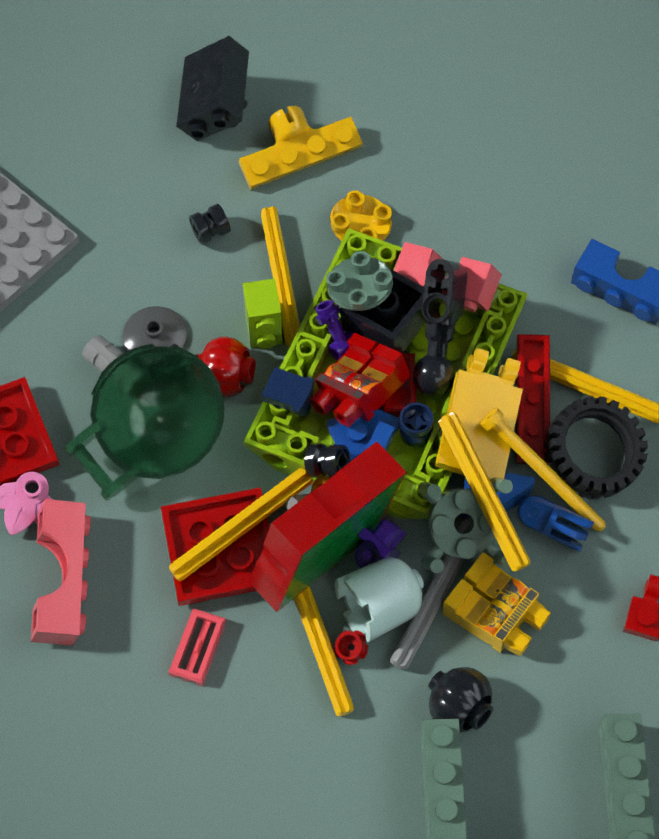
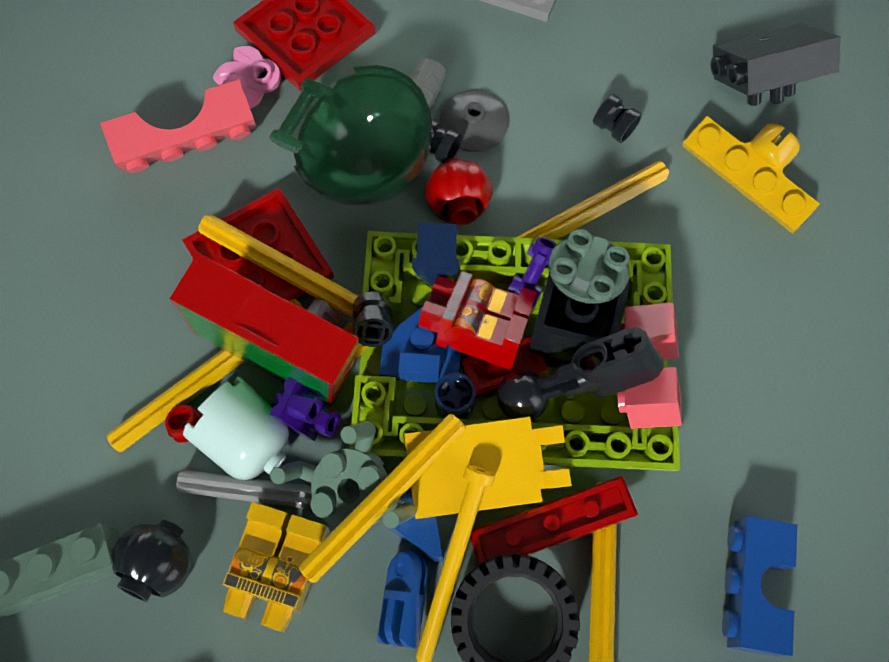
camera: 70 degrees right, 5 degrees up
(188, 675) = (116, 291): coral tile -> none
(262, 313) = (527, 197): lime brick -> none
(361, 214) = (700, 262): yellow dish -> none

